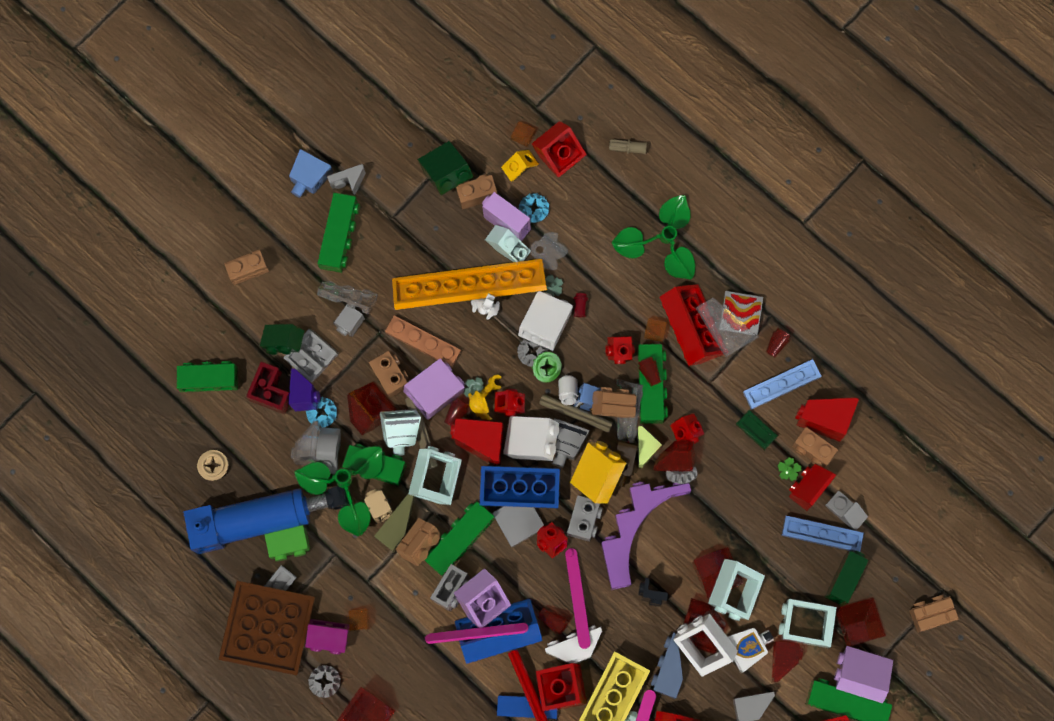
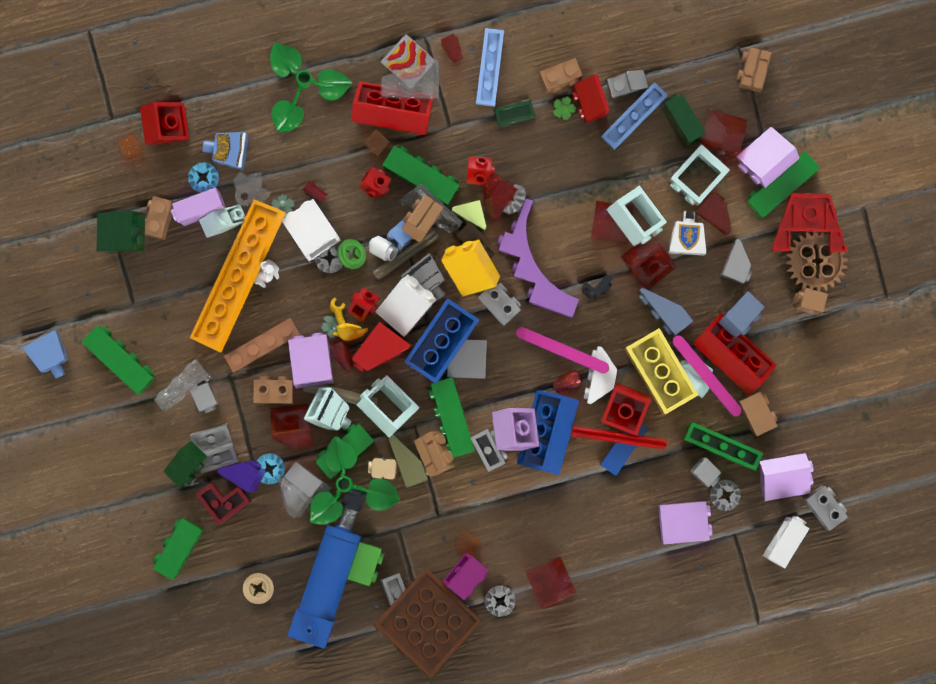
camera: 65 degrees left, 10 degrees up
(246, 267) = (100, 457): medium nougat brick -> none
(352, 175) = (75, 316): light grey slope -> none
(476, 633) = (541, 451): dark pink piece -> none
(518, 164) = (156, 166): yellow bracket -> none
(551, 540) = (501, 341): red brick -> none
(571, 213) = (228, 149): none -> torso
(627, 146) = (200, 62): dark tan axle -> none
(650, 370) = (411, 170): clear red cone -> none
(703, 665) = (684, 267): white window -> none
(827, 416) = (542, 48): red slope -> none

